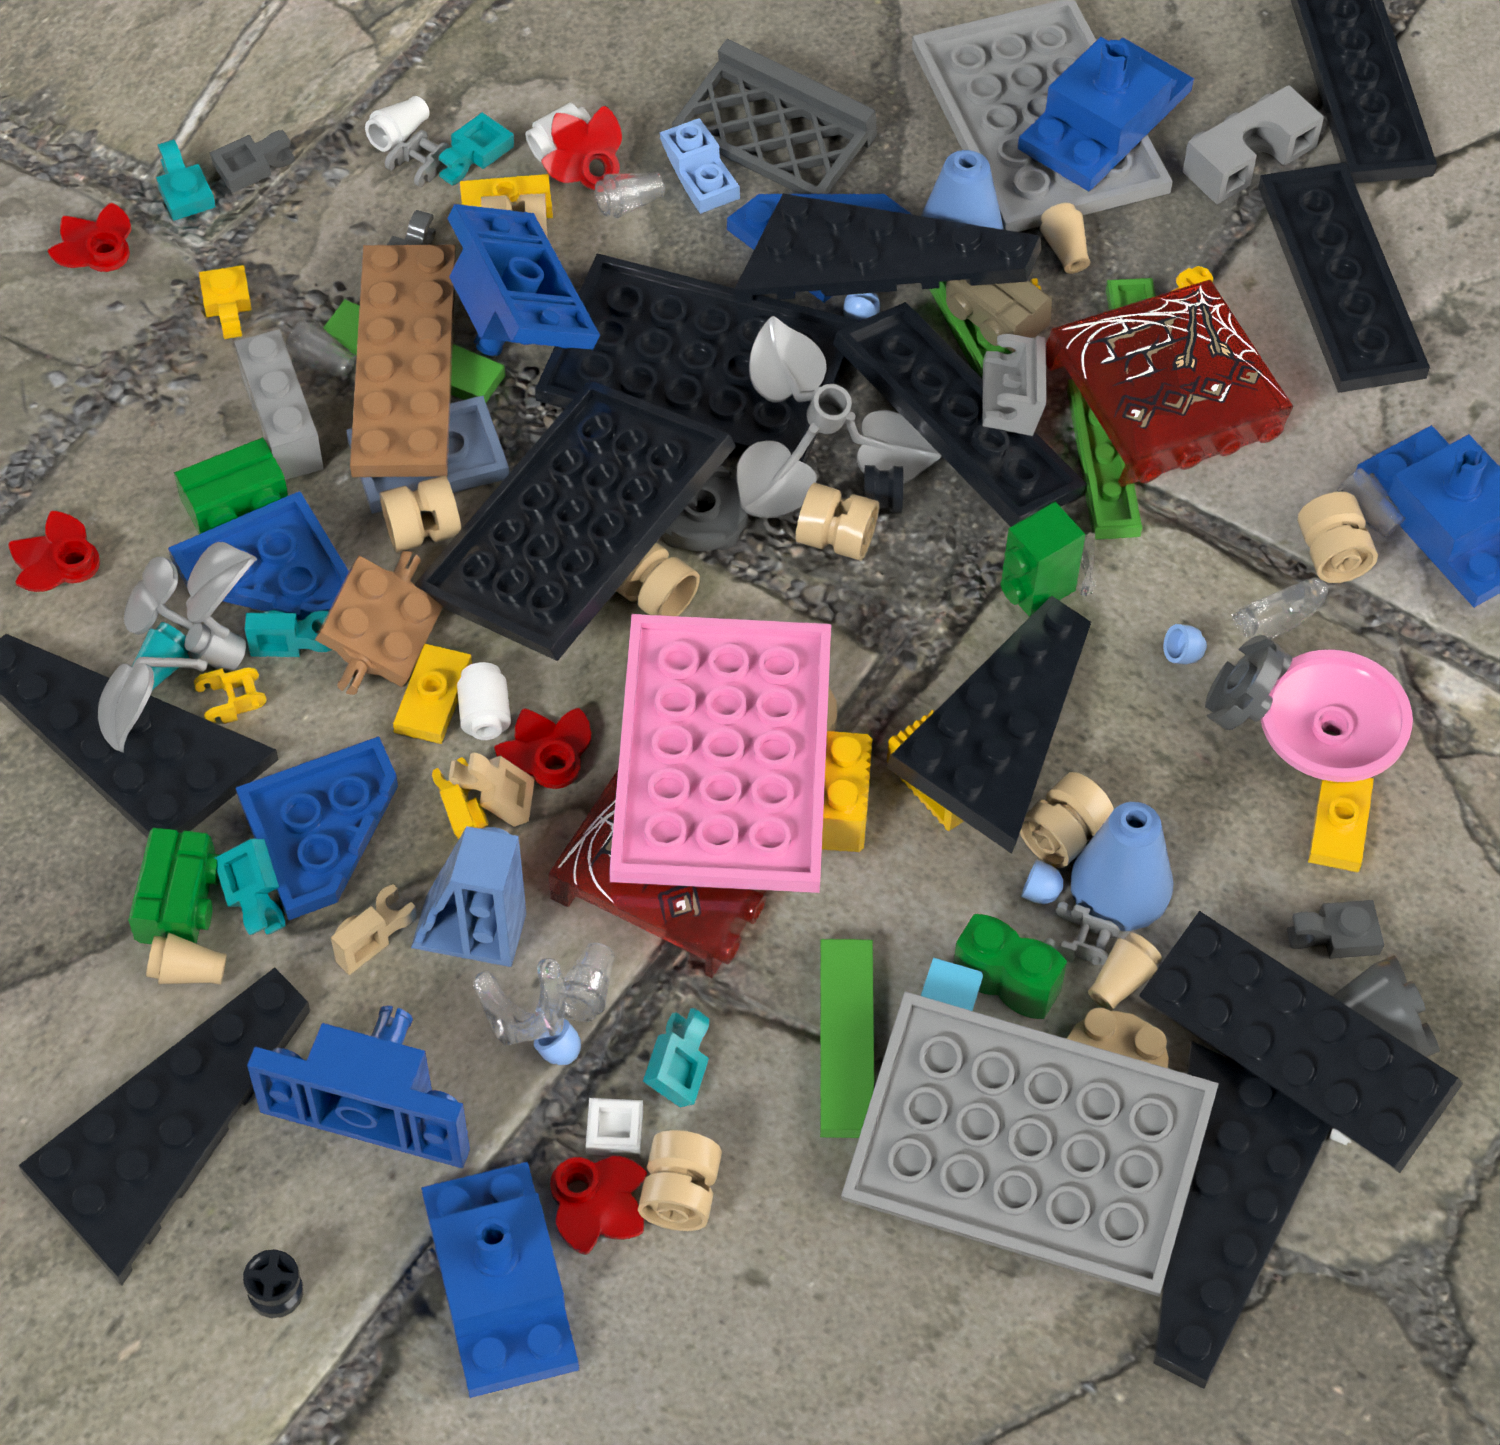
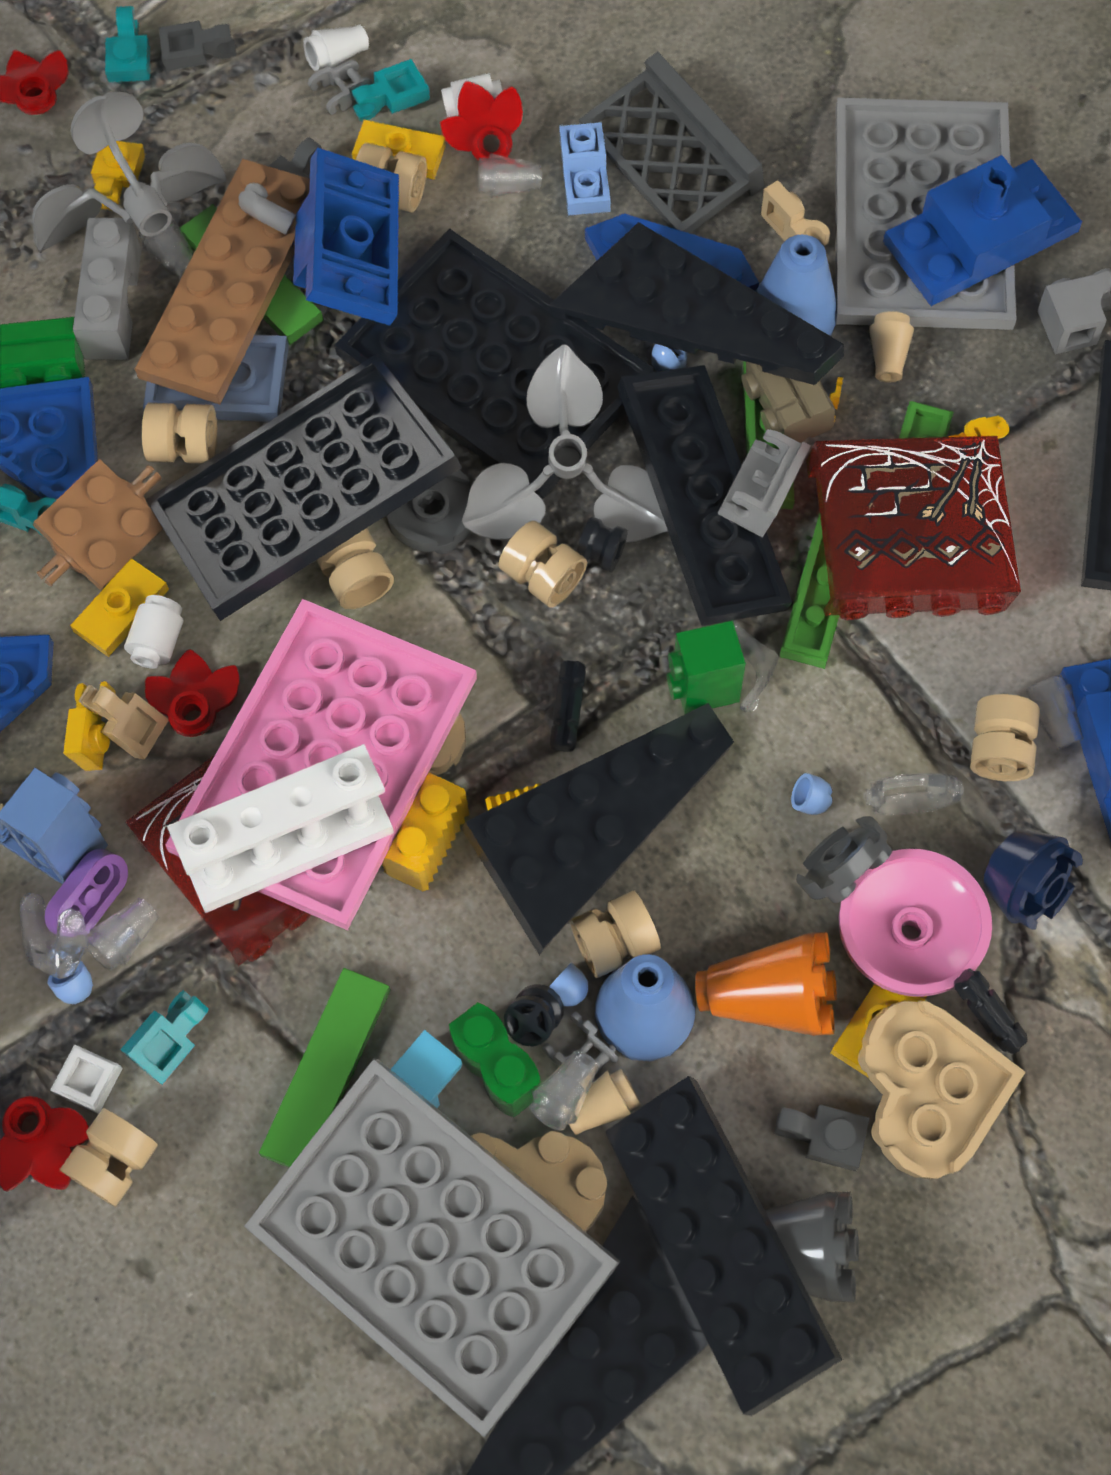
camera: 25 degrees right, 10 degrees up
(292, 306) = (101, 123): none -> light grey plant
(405, 278) = (254, 203): none -> light grey arm
(537, 937) = (89, 888): none -> medium lavender plate
(735, 803) = (282, 828): none -> white fence
(915, 151) = (786, 214): none -> tan plate
(919, 642) = (567, 706): none -> black axle
(1026, 921) = (524, 1024): none -> black wheel
(1090, 968) = (564, 1091): none -> clear cone
(1236, 813) = (774, 986): none -> orange cone
(1418, 642) = (1031, 875): none -> dark blue cone
(1422, 847) = (936, 1086): none -> tan plate
(1438, 769) = (990, 1011): none -> black axle

